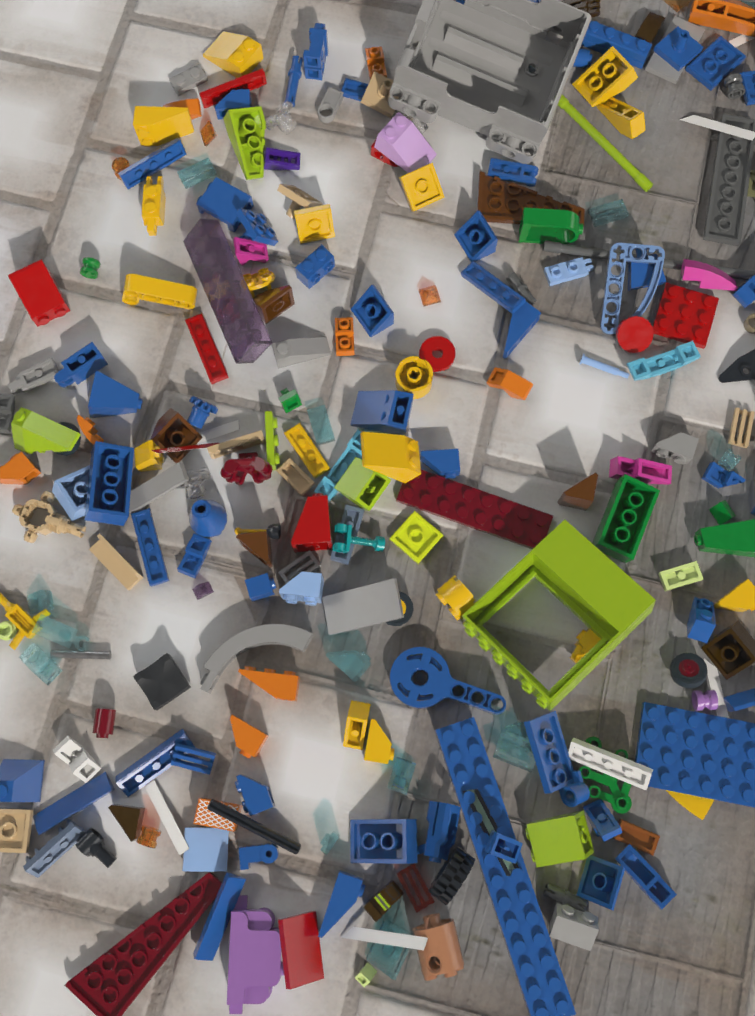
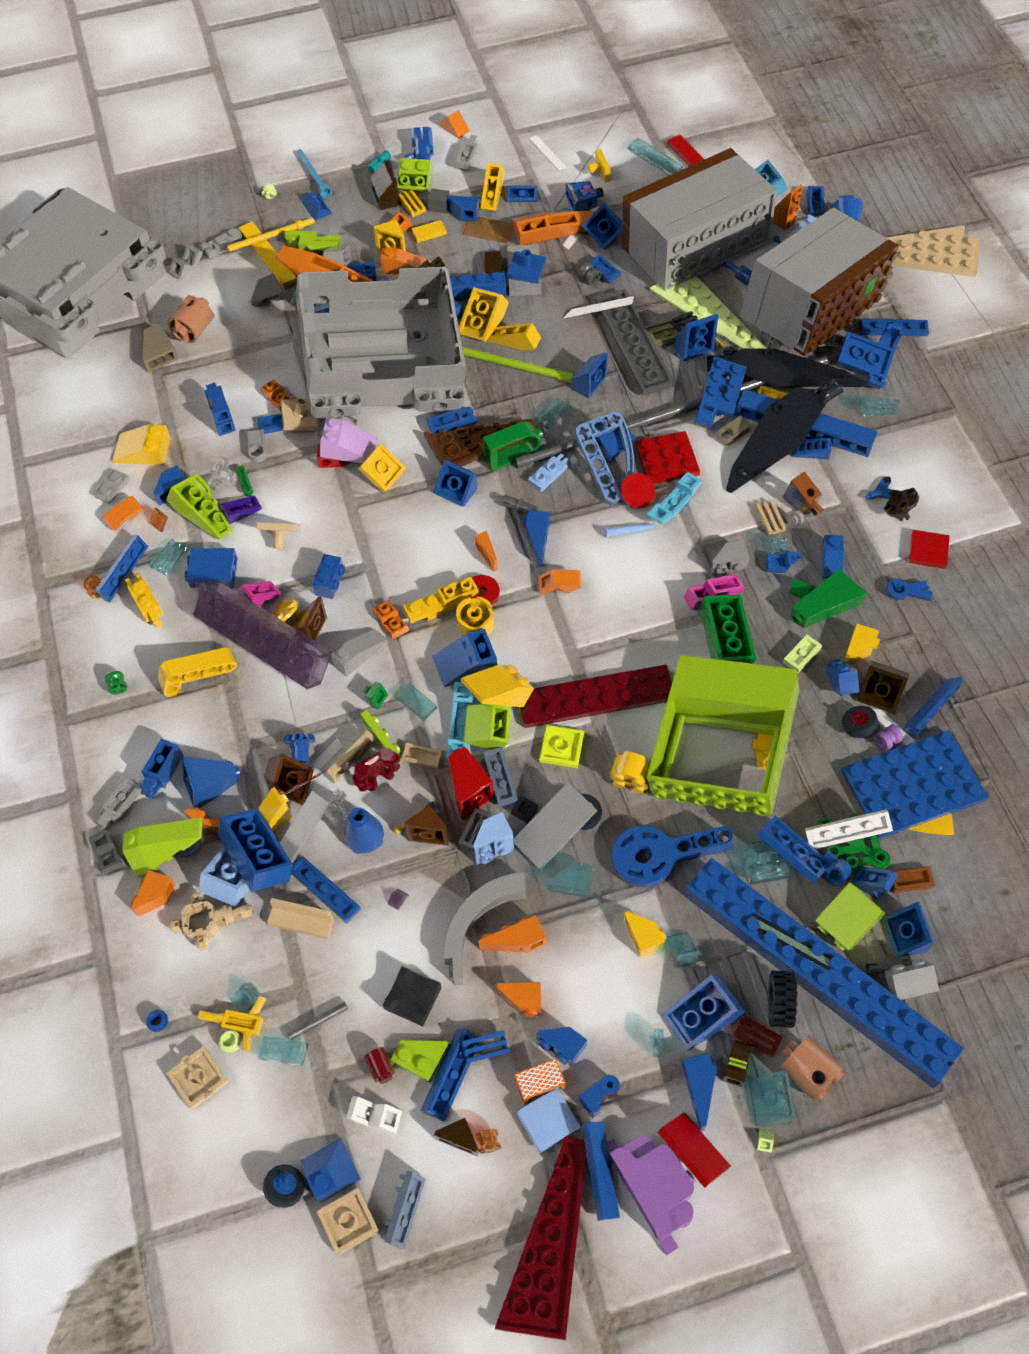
camera: 30 degrees left, 15 degrees down
(39, 293) = (80, 727): red slope -> none
(58, 632) = (284, 1011): clear light blue plate -> none
(73, 803) = (395, 1158): blue slope -> none
(92, 844) = (439, 1183): black pin -> none
(140, 734) = (420, 1057): none -> lime wing
(161, 124) = (112, 531): yellow slope -> none
(166, 817) = (493, 1115): white sticker -> none
(194, 556) = (371, 873): blue slope -> none
(206, 348) = (270, 694): red tile -> none
(249, 81) = (149, 482): red tile -> none
(254, 826) = (581, 1067): black axle -> none
(256, 227) = (255, 570): blue plate -> none
(260, 586) = (450, 863): blue brick -> none
(294, 76) = (209, 437): blue pin -> none
(300, 134) = (244, 480): none -> green axle
(307, 451) = (417, 729): yellow tile -> none
(314, 223) = (306, 541): yellow plate -> none
(350, 575) = (524, 809): none -> black tile
(356, 725) = (614, 928): yellow slope -> none
(373, 312) = (403, 584): blue slope -> none
(378, 543) = (532, 768): teal bar -> none
(386, 938) = (762, 1089): white sticker -> none
(396, 345) = (442, 602): none -> yellow slope
(429, 295) = (443, 550): clear orange slope -> none
(442, 462) = (545, 672): blue slope -> none
(442, 831) = (748, 970): blue piece -> none
(465, 312) = (485, 548): none -> orange slope
(493, 287) = (495, 514): blue tile -> none
(503, 846) = (808, 943): blue slope -> none
(581, 494) = (679, 633): reddish brown slope -> none
(645, 877) = (943, 905): blue slope -> none
(666, 194) = (590, 375): none -> blue slope
(707, 276) = (664, 418): dark pink slope -> none
(715, 63) = (563, 264): blue tile -> none

